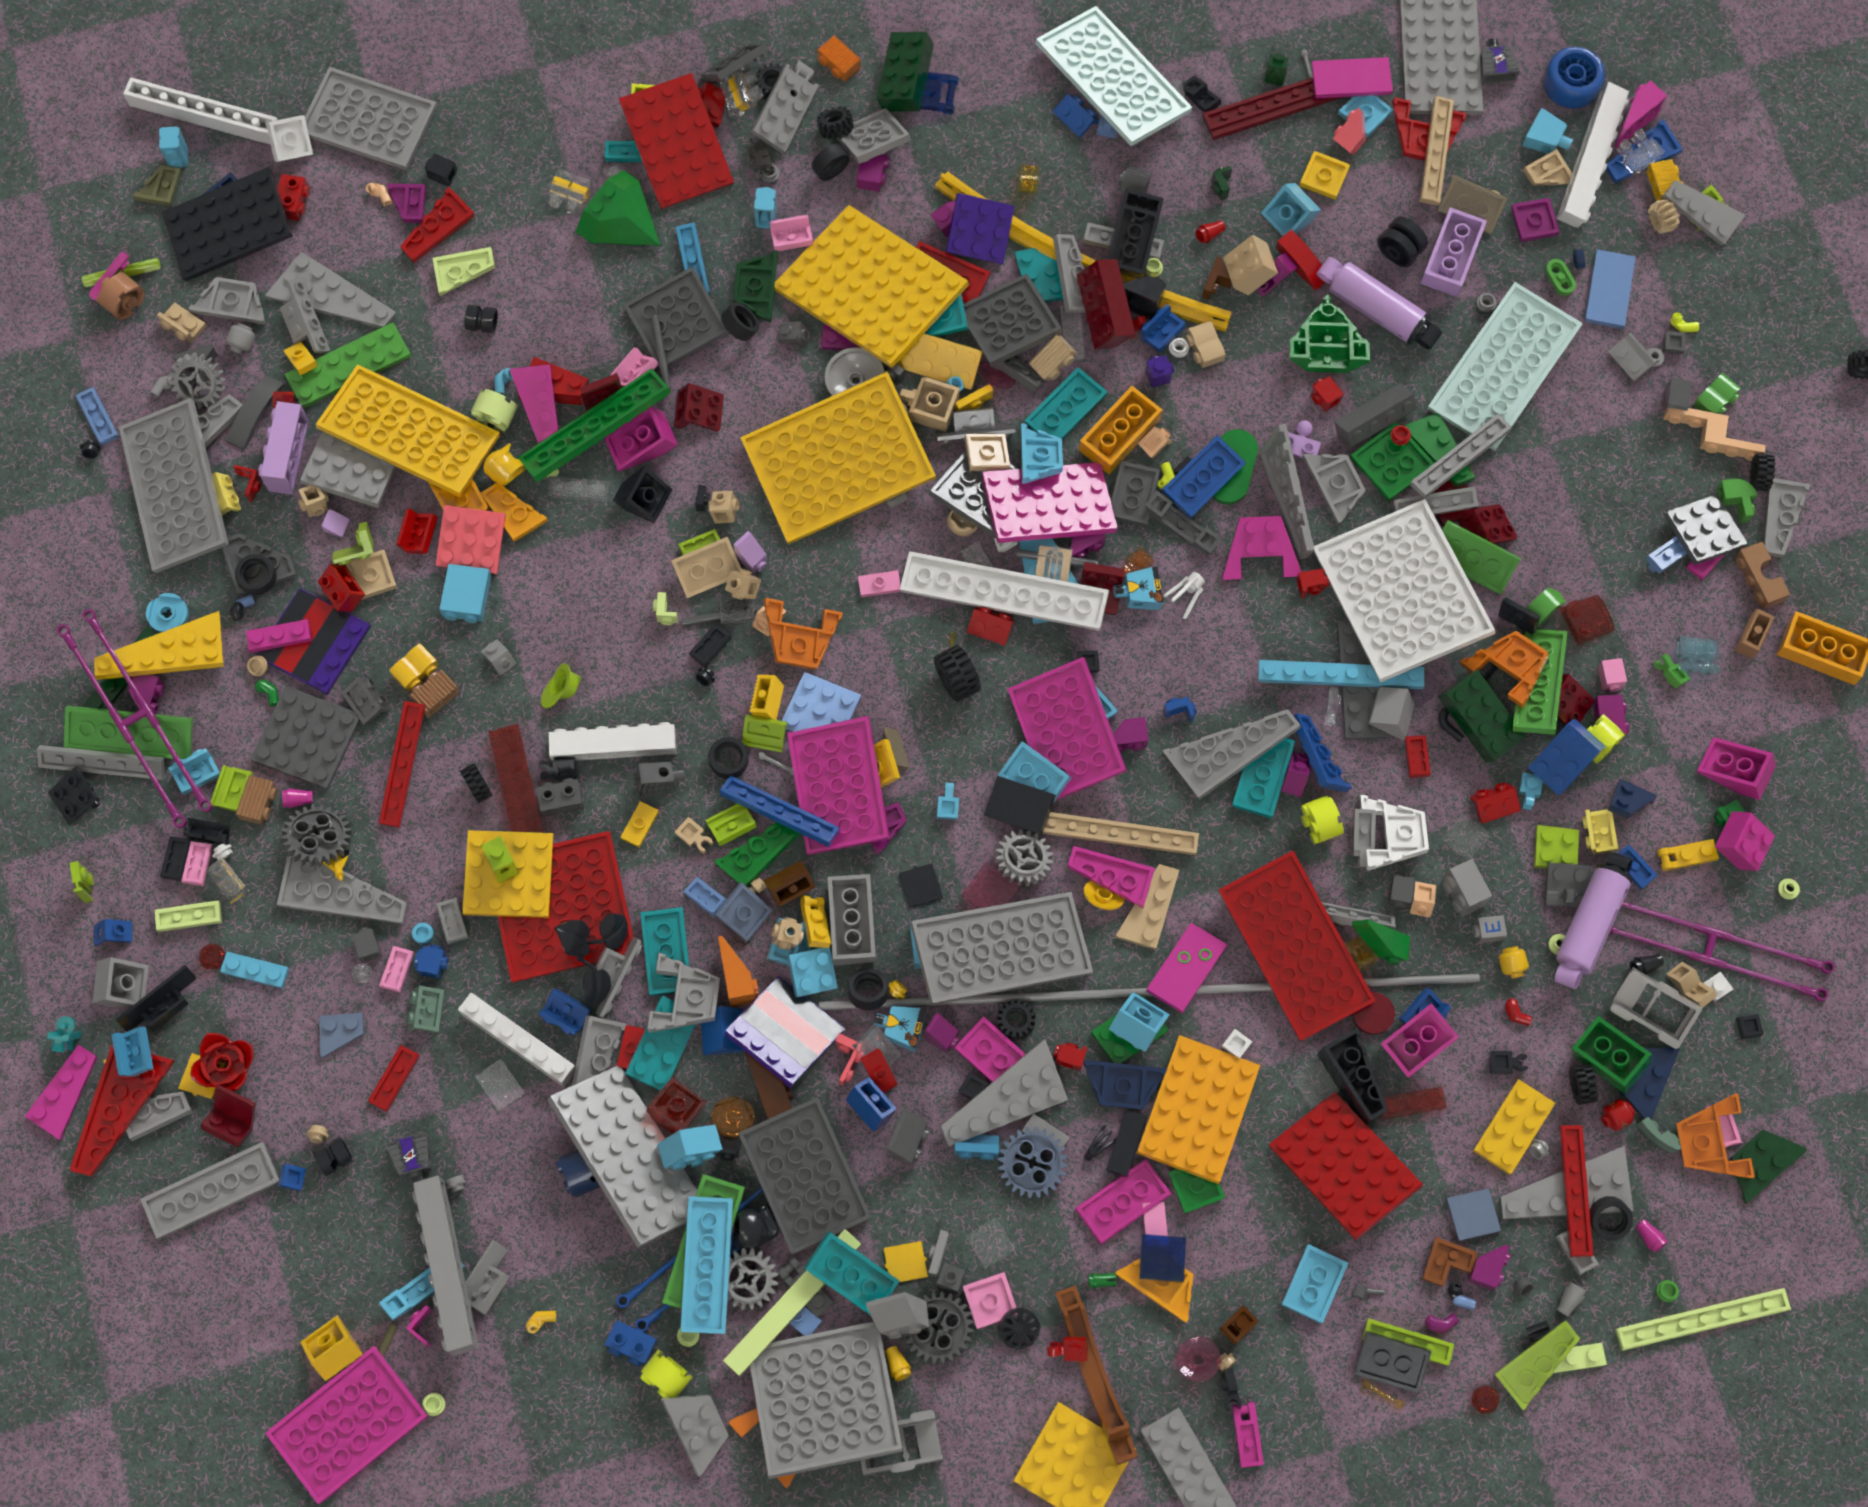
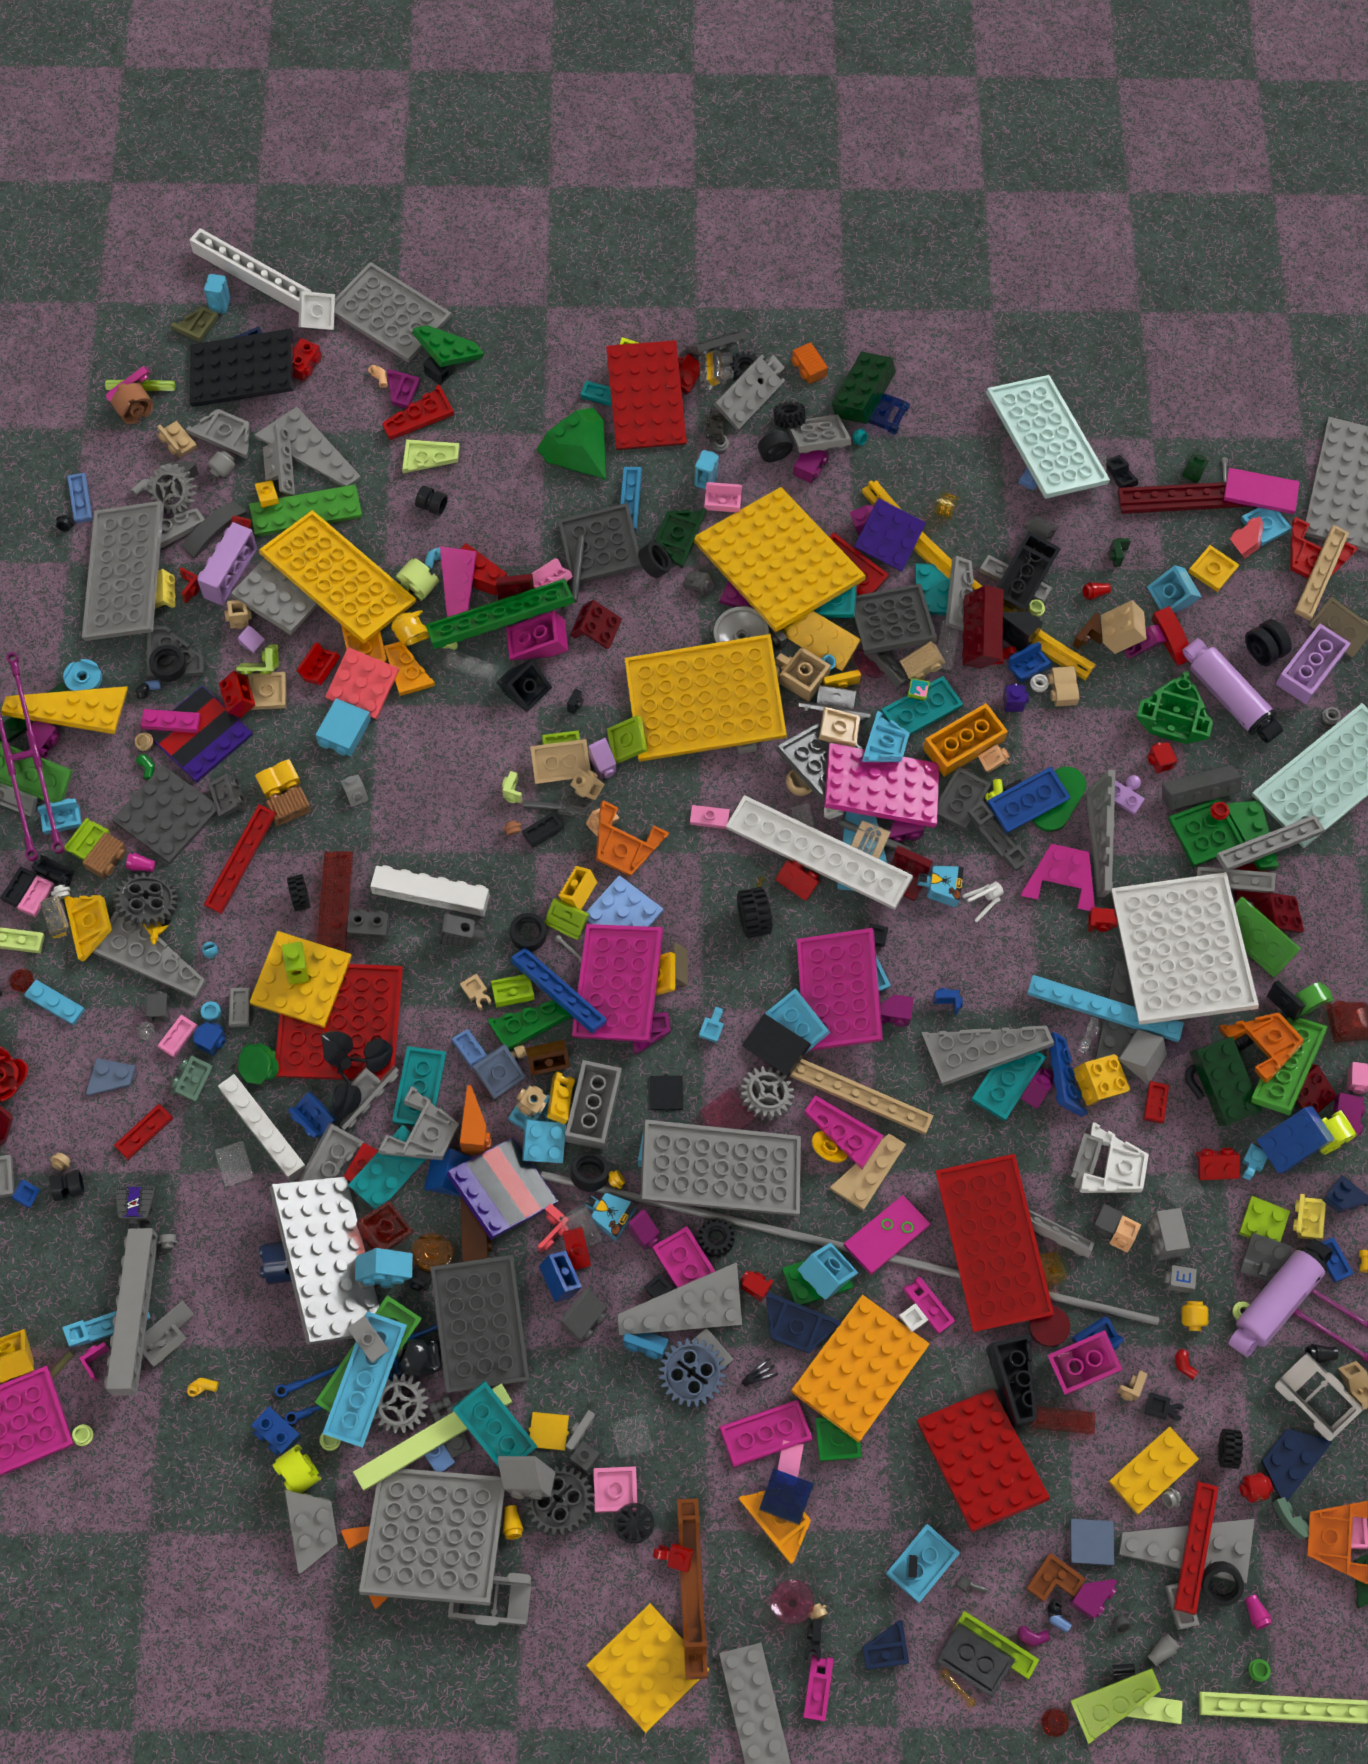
camera: 15 degrees right, 5 degrees down
(263, 876) = (88, 923): none -> yellow wing
(403, 871) = (210, 952): none -> medium azure hinge
(443, 143) = (446, 347): none -> green plate
(491, 974) = (257, 1063): none -> green piece
(561, 686) = (400, 830): lime piece -> none
(561, 768) = (377, 900): black plate -> none
(571, 190) = (542, 413): clear hips -> none
(639, 824) = (431, 969): yellow plate -> none
(678, 652) = (512, 828): none -> nougat plate
(698, 1224) = (368, 1339): none -> light grey plate
(705, 676) = (530, 855): black plate -> none
(723, 506) = (591, 713): tan brick -> none
(769, 524) = (627, 739): none -> lime plate
(916, 127) = (860, 437): none -> teal plate
(1057, 388) = (918, 689): none -> tile
(1075, 114) = (1003, 461): blue bracket -> none
(1100, 1280) = (722, 1500): green pin -> none
(1126, 1143) = (784, 1380): black tile -> none
(1137, 561) = (948, 858): clear orange plate -> none
(1238, 1325) = (839, 1581): reddish brown slope -> none
(1249, 1026) = (930, 1305): none -> dark pink plate
(1303, 1377) = (887, 1648): none -> dark blue wing
(1306, 1291) = (911, 1570): none -> black tile
(1322, 819) = (1051, 1134): neon yellow brick -> none
(1336, 482) = (1149, 837): light grey wing -> none
(1356, 748) = (1101, 1079): none -> yellow bracket
(1384, 941) = (1077, 1261): green slope -> none
(1475, 1046) = (1136, 1384): none -> tan bracket
(1612, 1054) = (1265, 1428): green brick -> none

